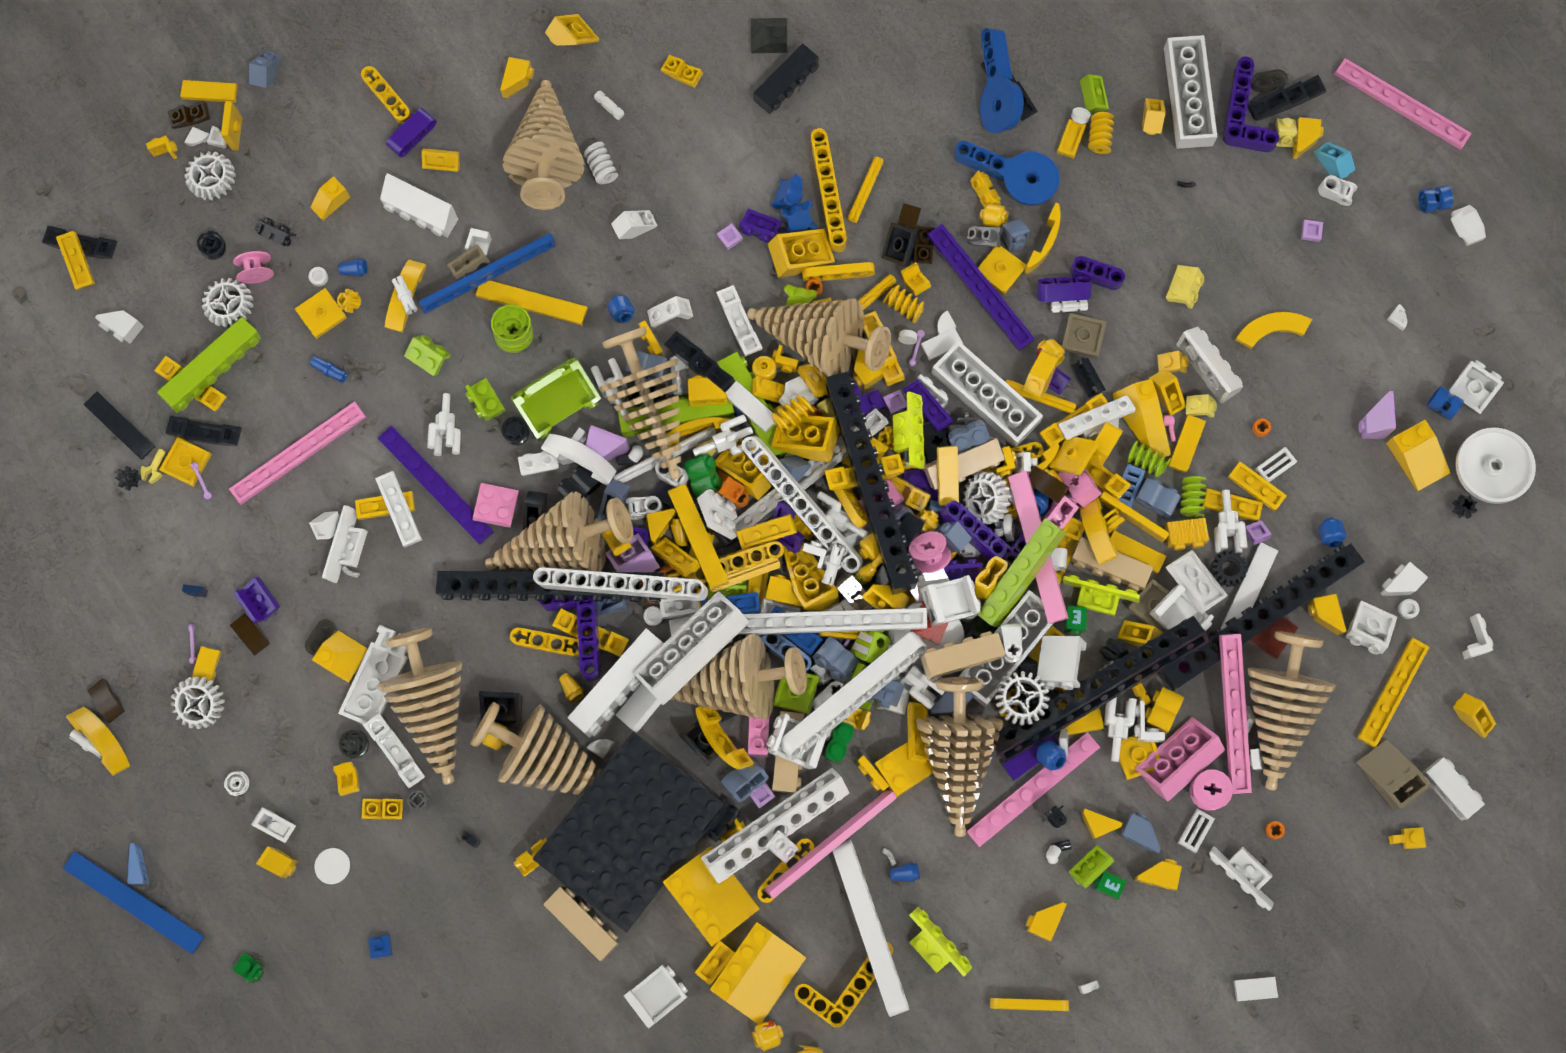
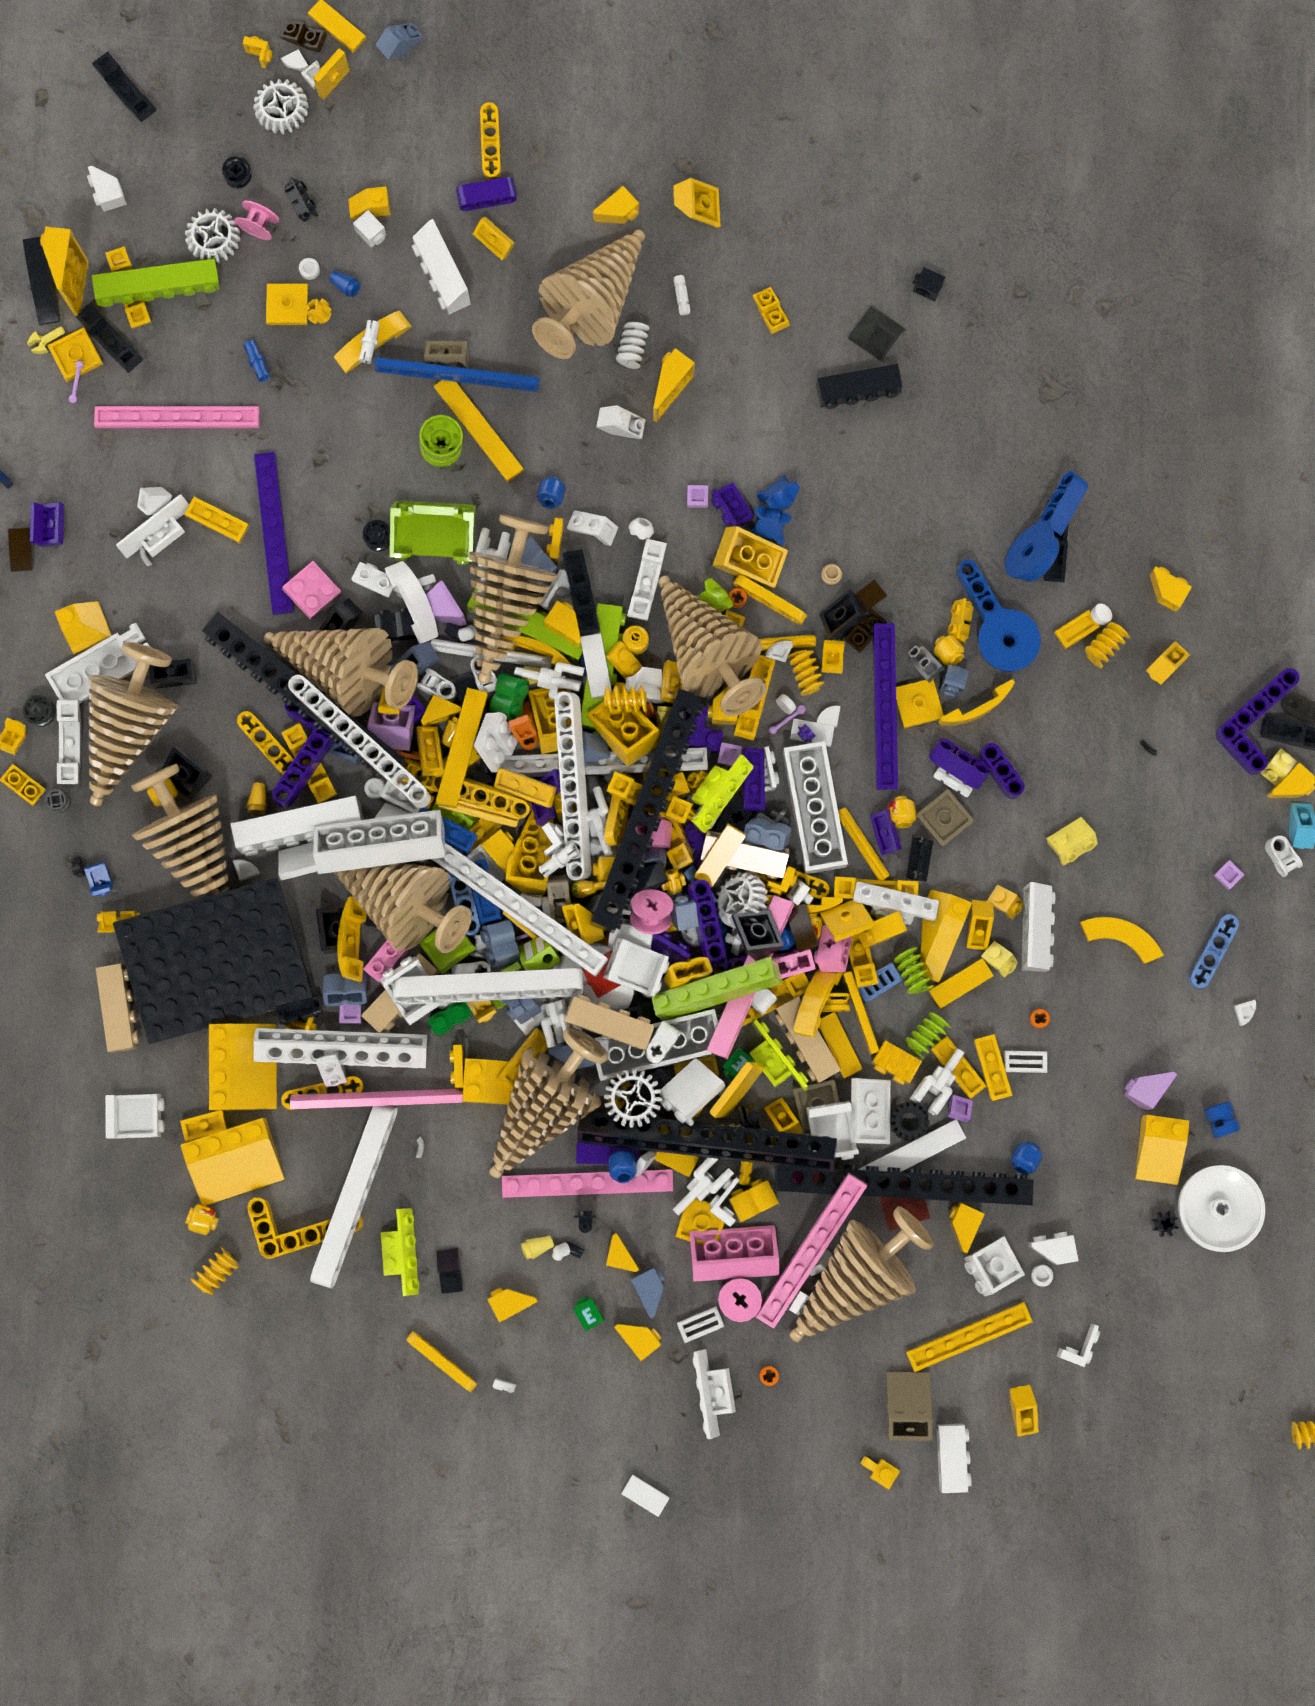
camera: 30 degrees right, 5 degrees up
(75, 260) = (109, 101): yellow plate -> none
(130, 395) = (67, 265): none -> yellow slope
(132, 475) = (11, 329): black gear -> none
(319, 636) = (78, 594): clear smoke plate -> none
(343, 216) = (370, 229): none -> white brick
(398, 509) = (225, 532): white tile -> none
(427, 354) = (351, 409): lime bracket -> none
(441, 639) = (178, 673): none -> black brick
(444, 429) = (316, 488): white plant -> none
(478, 237) = (473, 336): white panel -> none
(485, 399) = (371, 487): lime bracket -> none
(494, 836) = (99, 879): none -> bracket
(648, 161) = (675, 375): none -> yellow slope
(706, 286) = (641, 528): none -> white plate
(786, 364) = (659, 650): yellow bracket -> none
(828, 181) = (824, 510): yellow beam -> none
(865, 189) = (852, 541): yellow axle -> none
(868, 223) = (831, 574): none -> tan plate
(874, 302) = (779, 650): none -> white tile
(907, 872) = (423, 1172): blue cone -> none
(939, 346) = (806, 733): none -> dark purple plate
(982, 932) = (449, 1271): none -> black slope
(1023, 510) = (759, 937): none -> black slope
(1032, 864) = (534, 1247): none -> light yellow cone
(1041, 374) = (876, 825): yellow slope -> none
(1091, 636) = (737, 1089): none -> yellow tile
(1091, 866) = (583, 1286): lime bracket -> none
(1094, 93) = (1131, 603): lime slope -> none
(1113, 65) = (1169, 589): none -> yellow slope
(1158, 498) = (895, 1012): sand blue brick -> none
(1169, 421) = (960, 951): bright pink hand -> none
(1190, 92) = (1218, 665): white brick -> none
(1344, 291) = (1216, 953): none -> medium blue beam
(1476, 386) = (1263, 1125): white plate -> none

